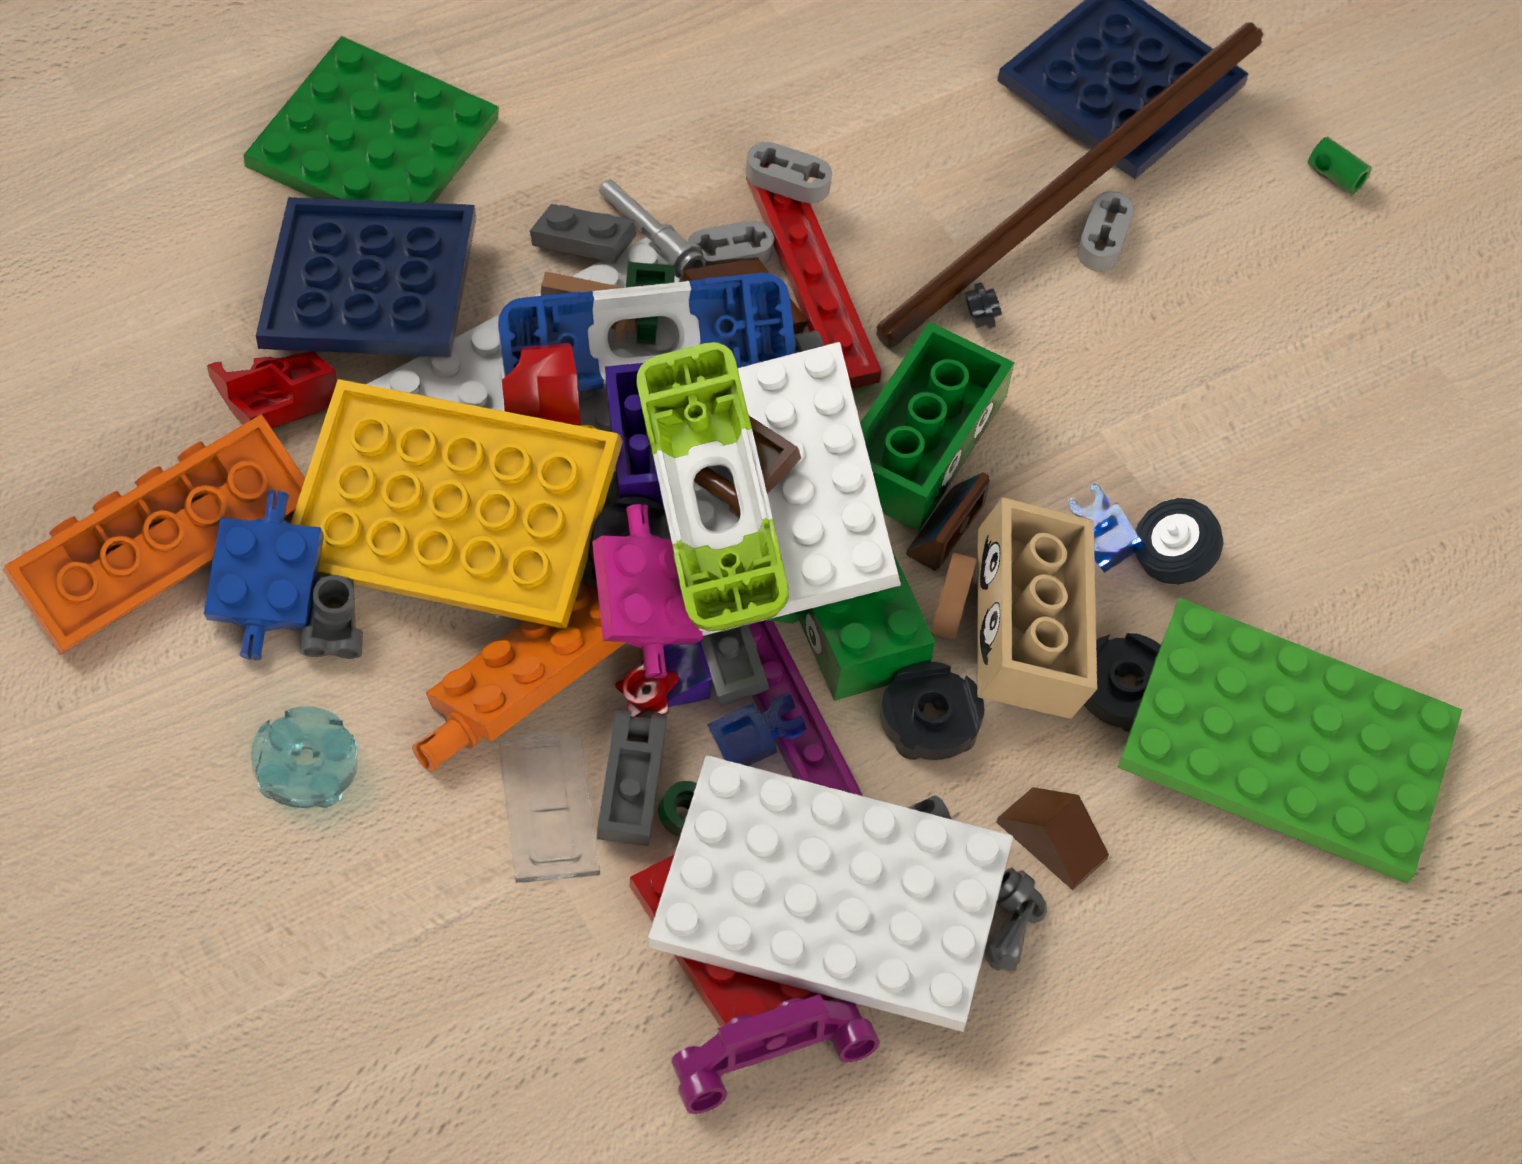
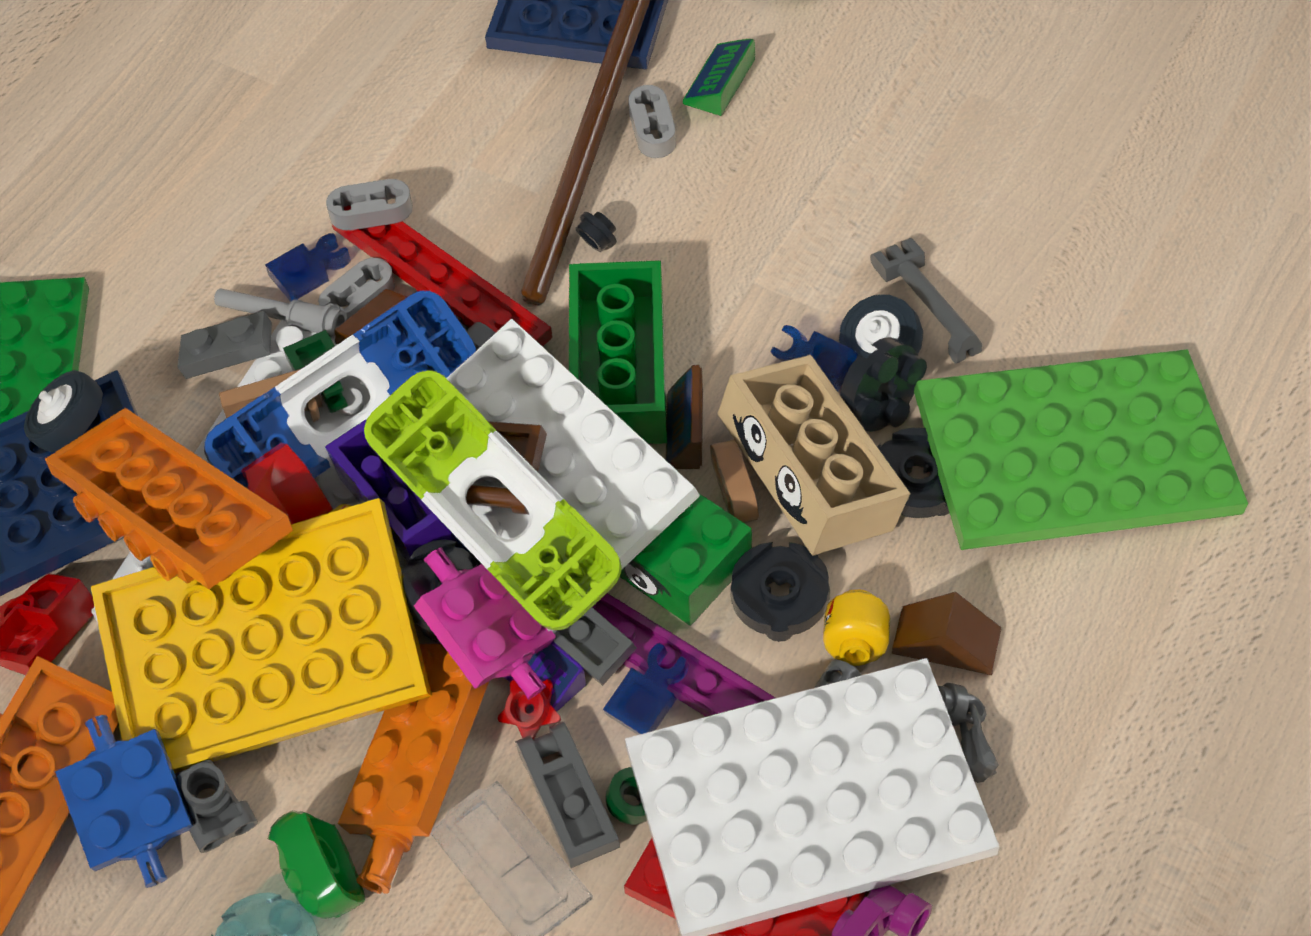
camera: 20 degrees left, 0 degrees up
(387, 714) = (316, 865): none -> green piece
(404, 216) = (63, 411): none -> black wheel
(440, 338) = (166, 501): none -> orange plate
(696, 202) = (305, 270): none -> clear blue plate
(977, 778) = (856, 625): none -> yellow head
(1143, 606) = (883, 384): none -> black plate
(1201, 223) = (721, 76): none -> green slope
(1251, 492) = (907, 266): none -> dark grey hinge

